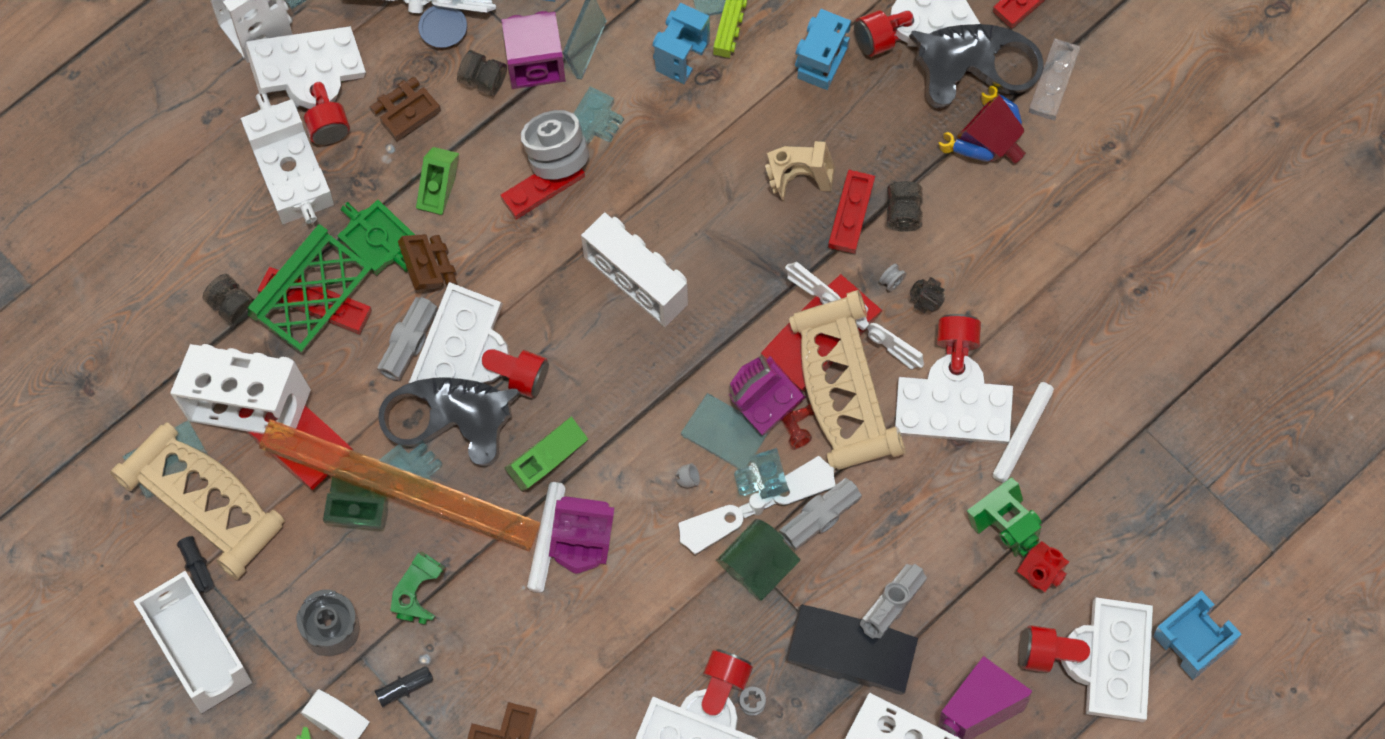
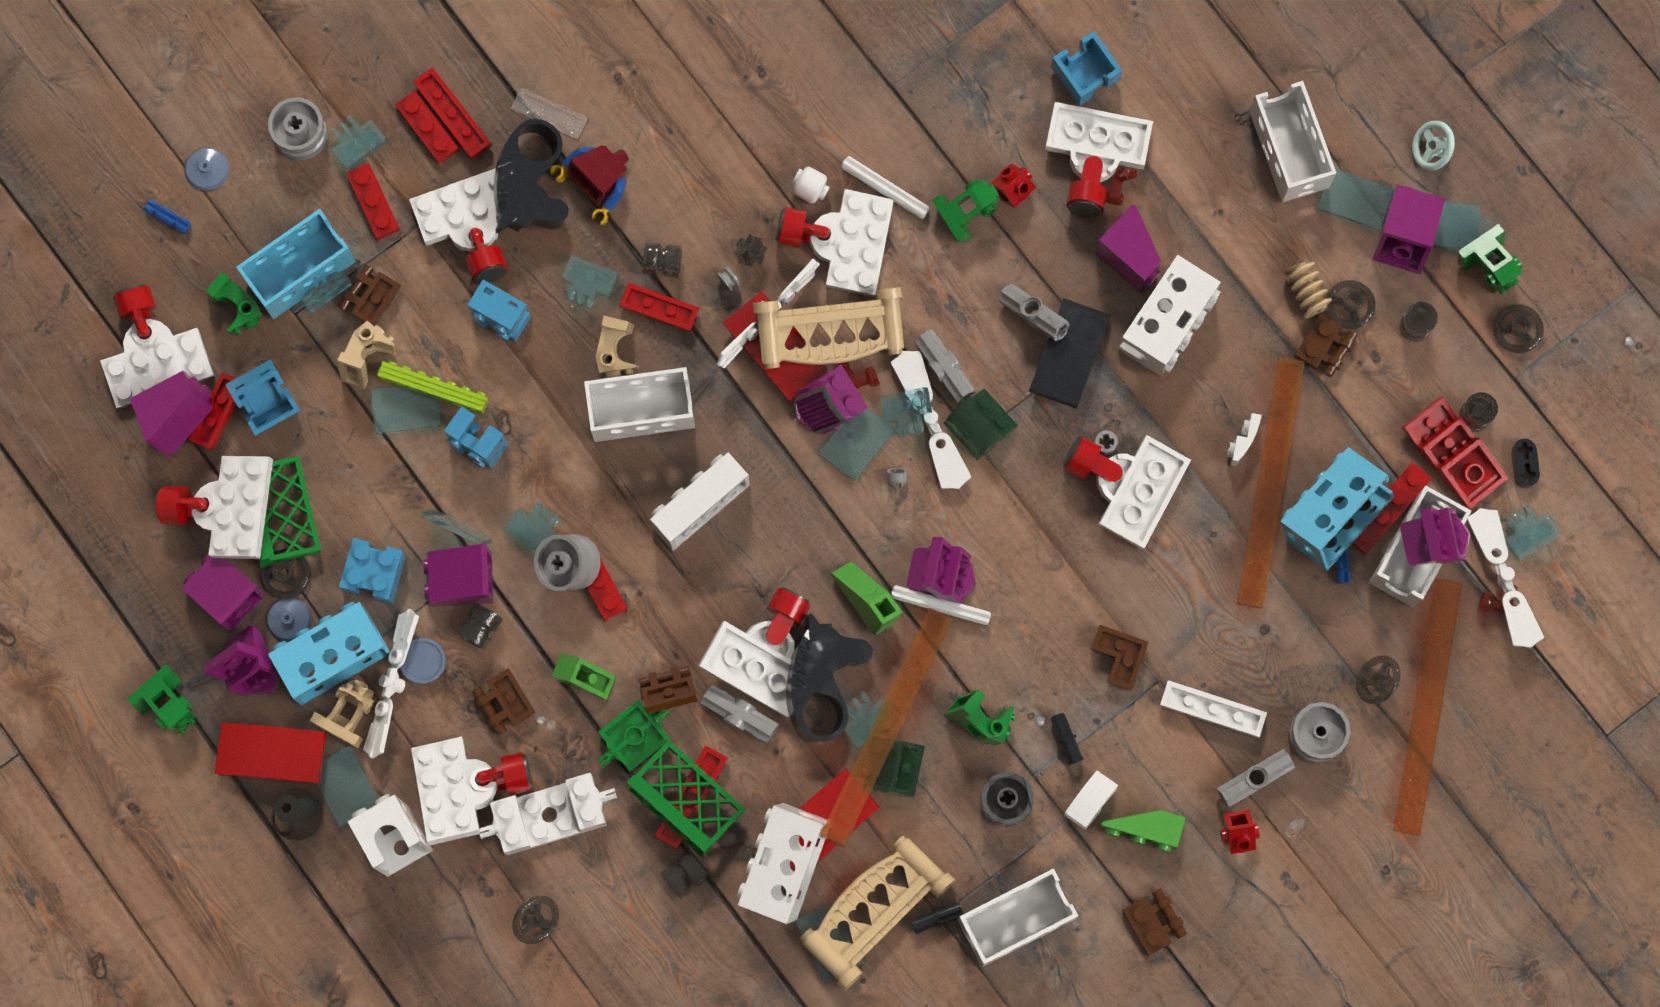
camera: 85 degrees left, 10 degrees up
(176, 159) = (530, 915): none -> clear smoke piece
(735, 196) = (639, 404): none -> white piece
(872, 137) = (588, 280): none -> clear light blue hinge
(1012, 349) = (810, 185): none -> white head
(1050, 684) = (1122, 174): none -> clear red piece

